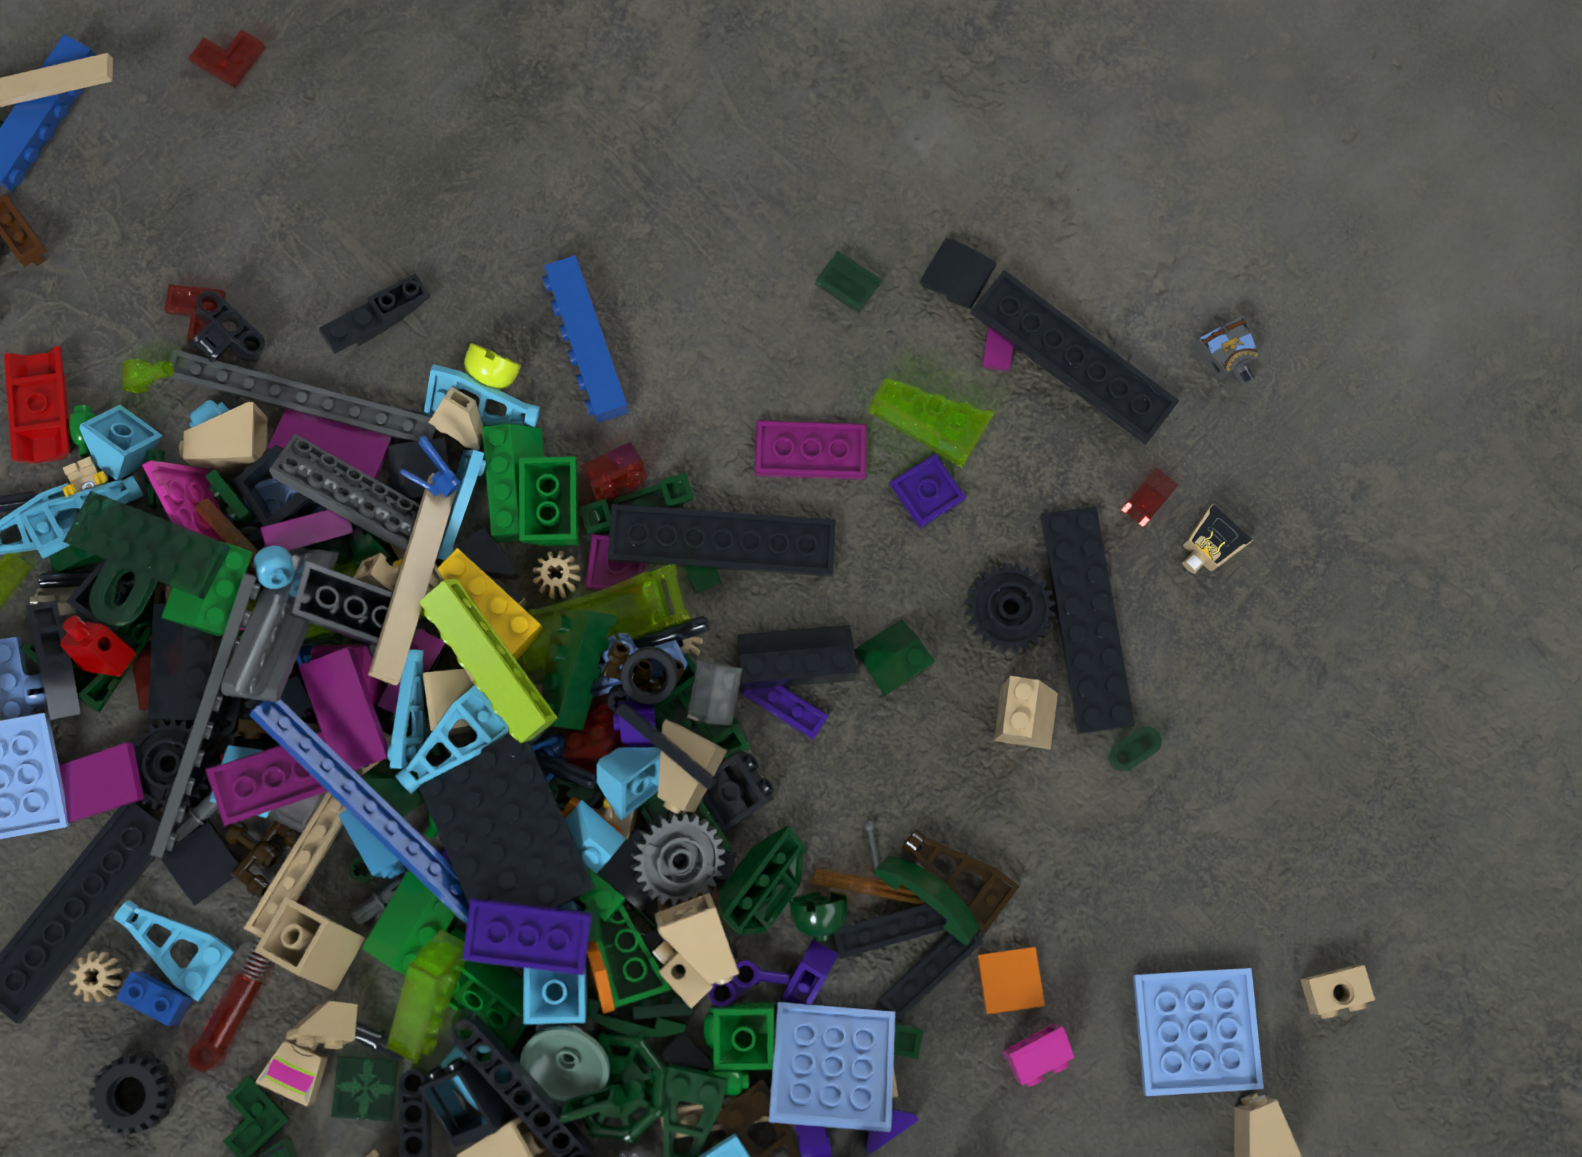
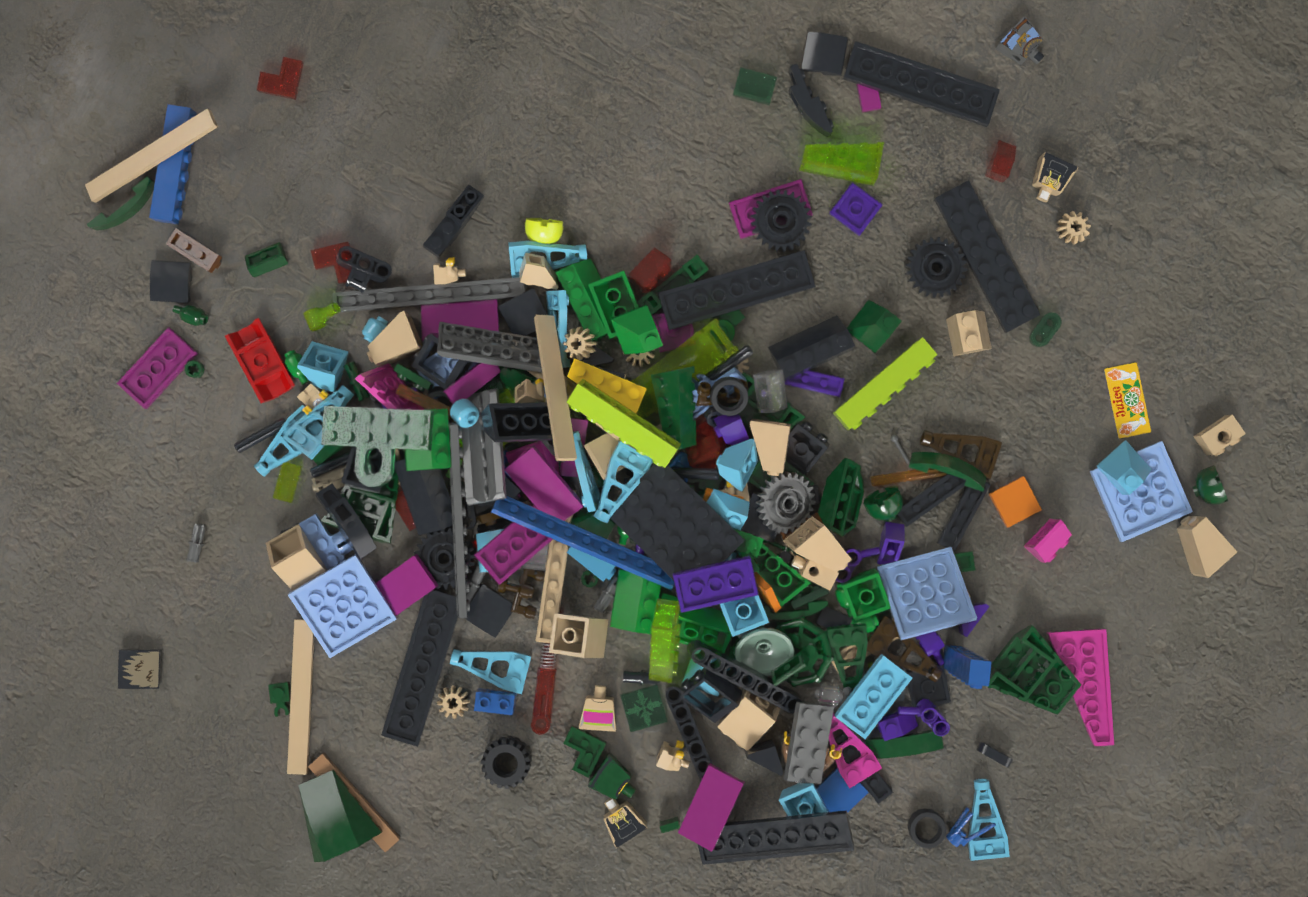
camera: 15 degrees left, 10 degrees up
(95, 647) = (372, 504): red torso -> none
(105, 277) = (266, 260): none -> dark green slope
(328, 1024) = (608, 678): tan slope -> none
(340, 377) = (447, 273): none -> tan piece
(444, 480) = (547, 316): blue plant -> none
(475, 531) = (586, 343): none -> tan gear
(559, 543) = (637, 331): none -> green slope
(586, 338) = (597, 187): blue brick -> none
(666, 746) = (759, 437): black tile -> none
(689, 589) = (728, 329): none -> dark green piece
(821, 448) = (776, 234): none -> black gear
(881, 743) = (885, 383): none -> lime brick
(911, 332) = (811, 109): none -> black slope
(1183, 987) = (1124, 468): none -> medium azure slope
(1213, 627) = (1070, 233): none -> tan gear
(1221, 892) = (1127, 400): none -> sticker
(1300, 1060) = (1209, 486): none -> dark green cylinder

